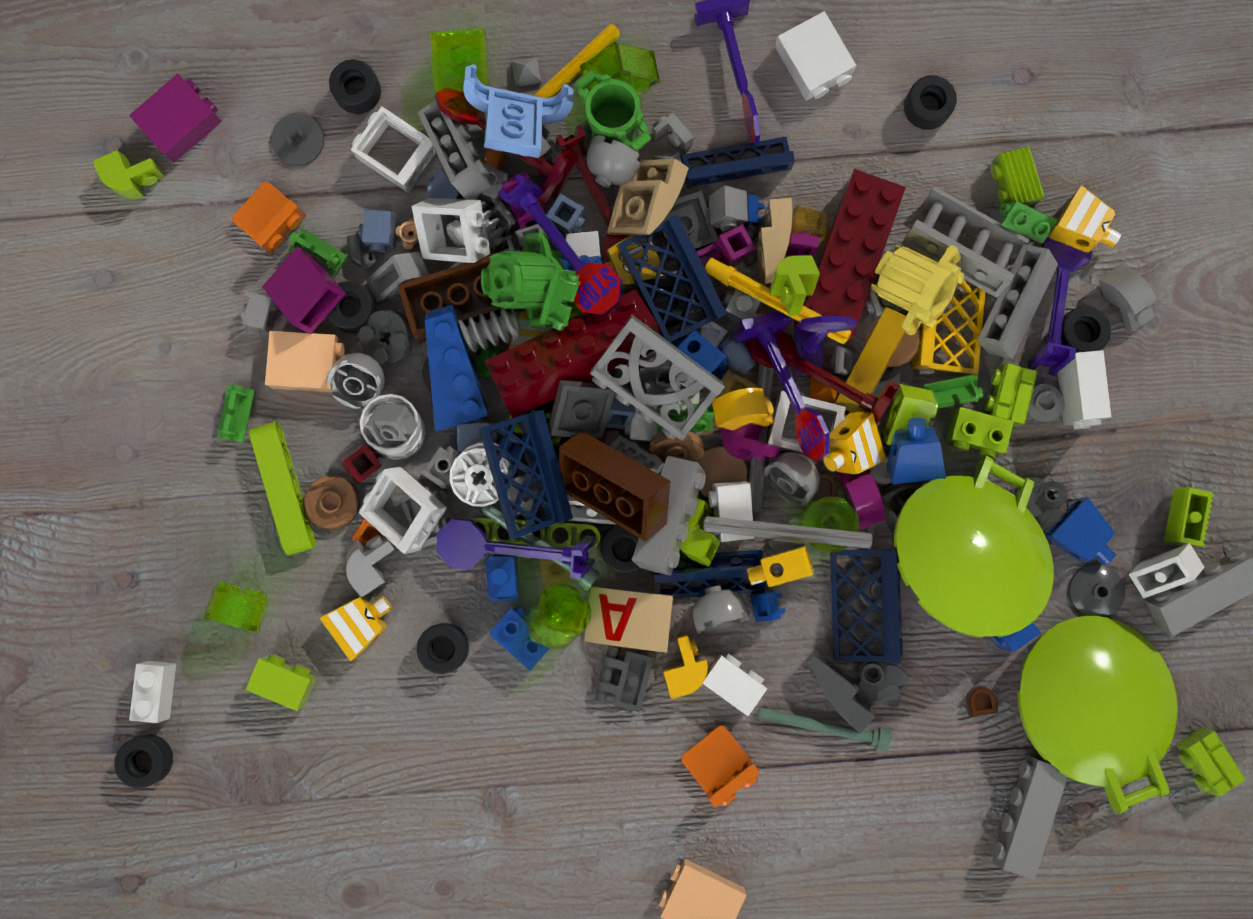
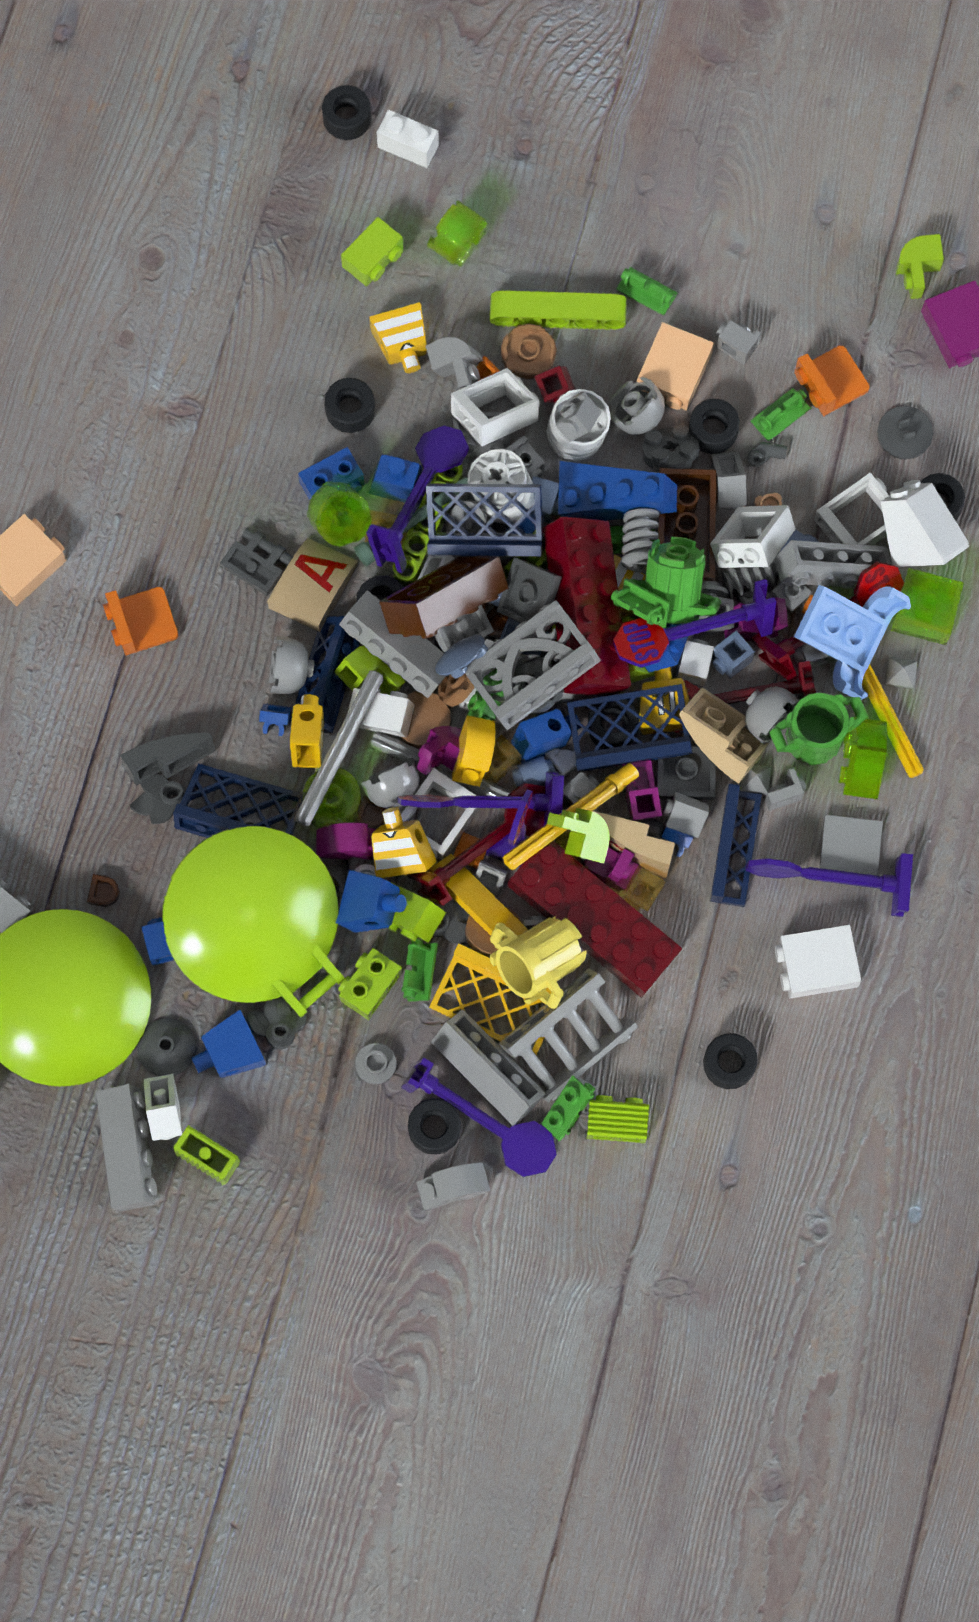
camera: 105 degrees right, 10 degrees down
(303, 290) = (742, 384): magenta brick -> none
(378, 230) = (781, 476): sand blue brick -> none
(392, 81) = (920, 526): none -> white slope
(668, 448) = (459, 655): none -> sand blue dish
(688, 676) = (238, 621): yellow brick -> none
(701, 64) = (851, 844): none -> light grey tile
(734, 684) = (212, 659): white brick -> none
(879, 738) = (107, 777): sand green piece -> none
(1011, 393) = (396, 1029): lime brick -> none
(1085, 222) = (546, 1169): yellow torso -> none
(1085, 390) = (373, 1095): white brick -> none

